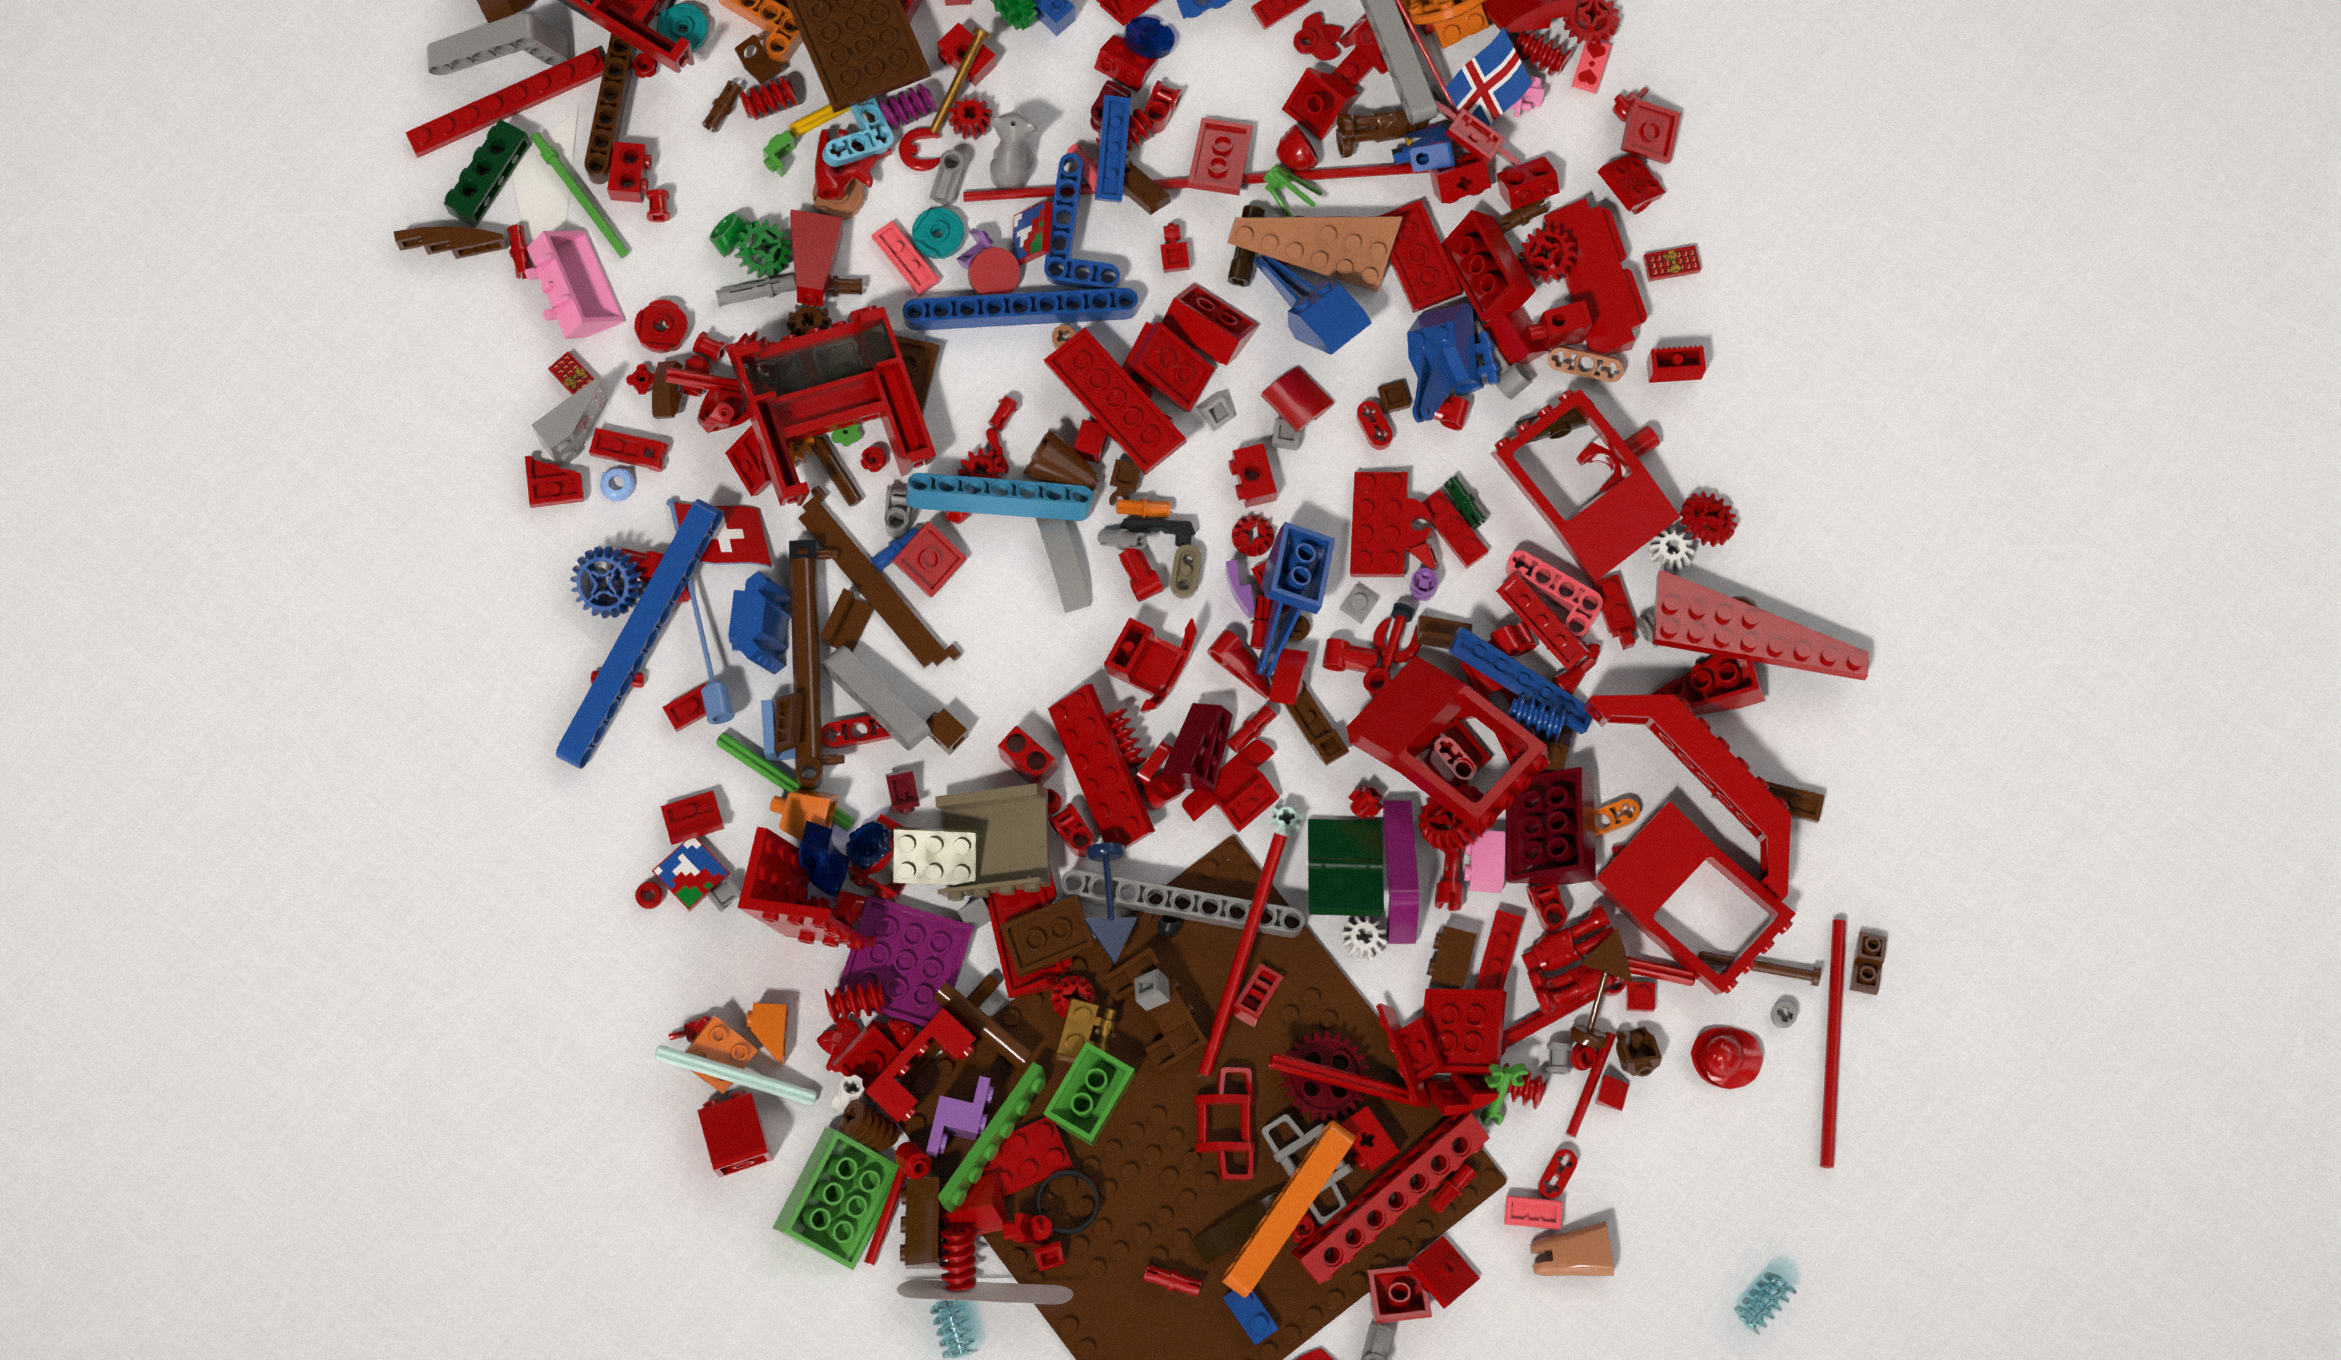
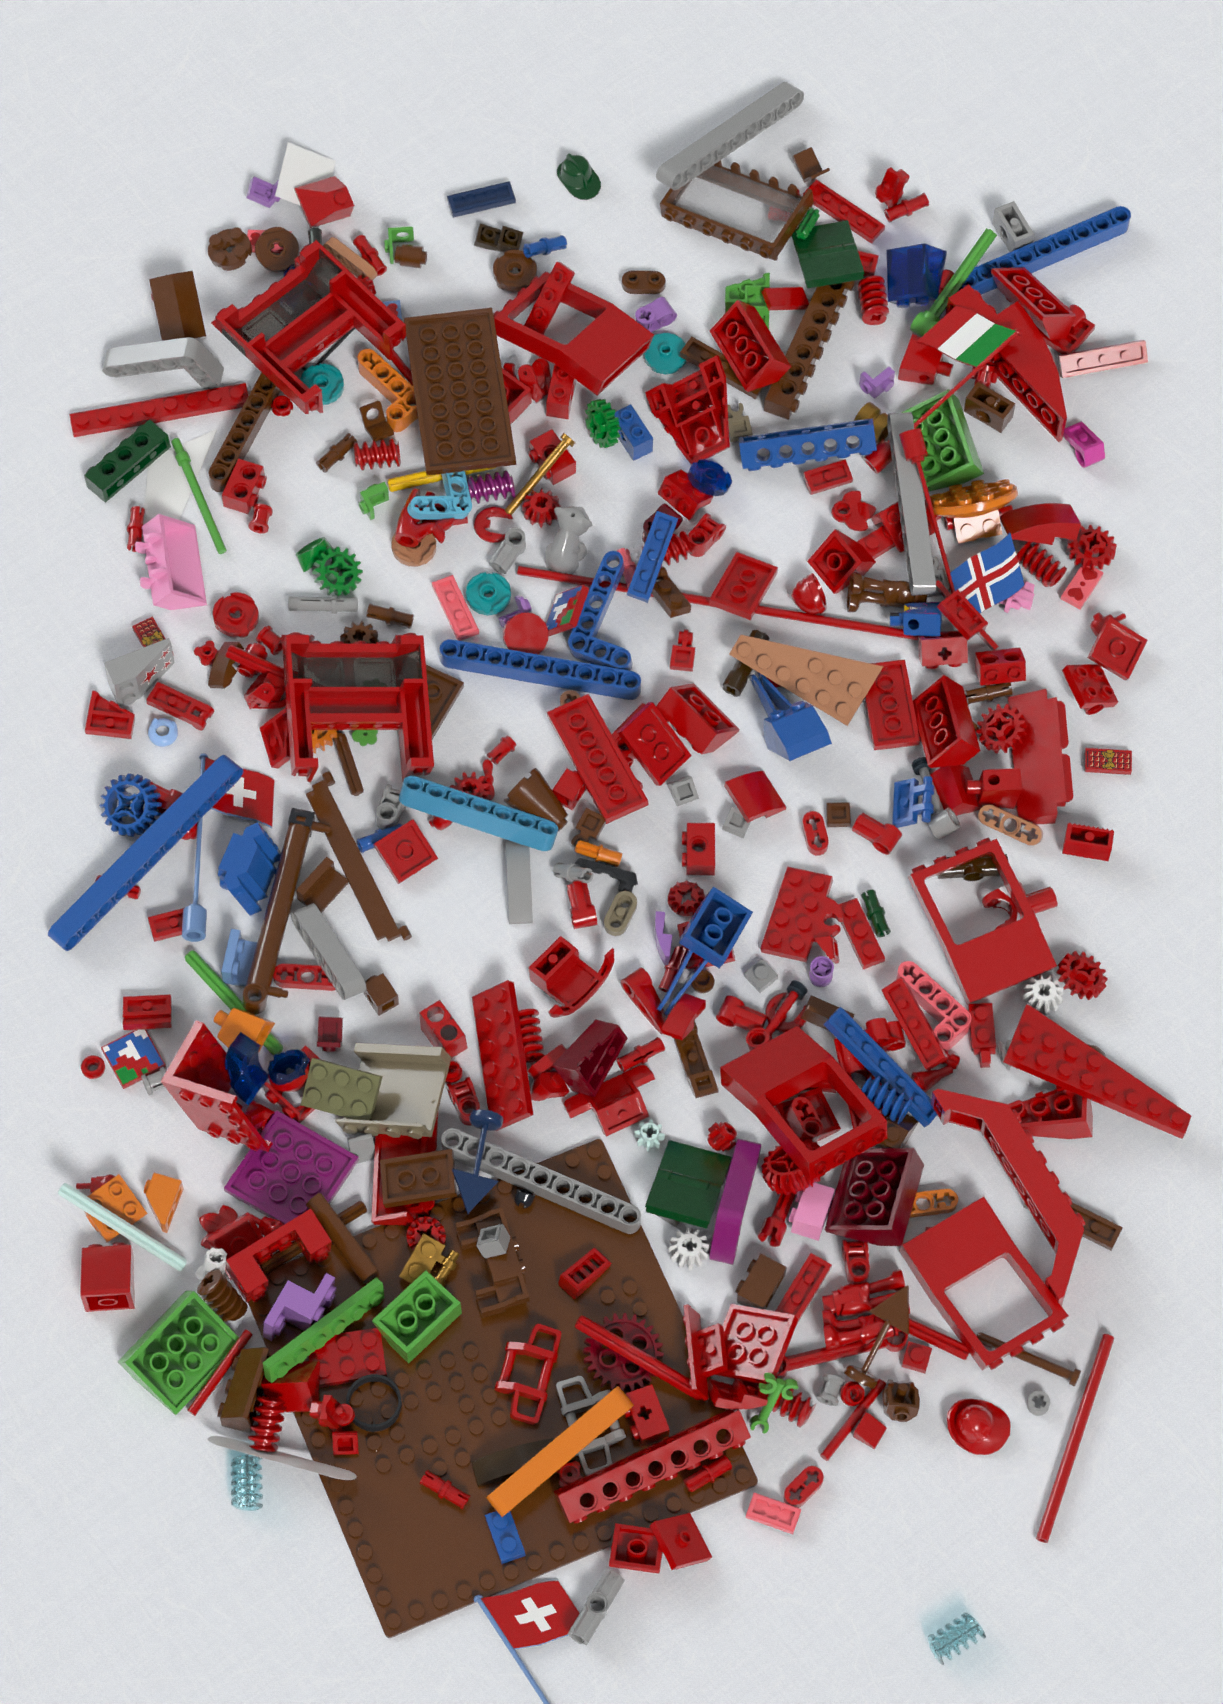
camera: 15 degrees right, 10 degrees down
(461, 240) = (75, 504): reddish brown slope -> none
(788, 722) = (248, 951): reddish brown plate -> none
(815, 251) = (379, 585): red slope -> none
(855, 1001) = (240, 1191): red piece -> none
(873, 452) = (379, 756): red plate -> none
(912, 1160) = (251, 1332): red brick -> none
(1242, 954) = (579, 1232): red piece -> none
(1280, 178) = (789, 615): bright green plant -> none
(1442, 356) = (886, 787): blue slope -> none
(1576, 1252) = (800, 1555): nougat piece -> none
(1868, 963) = (1124, 1378): reddish brown slope -> none

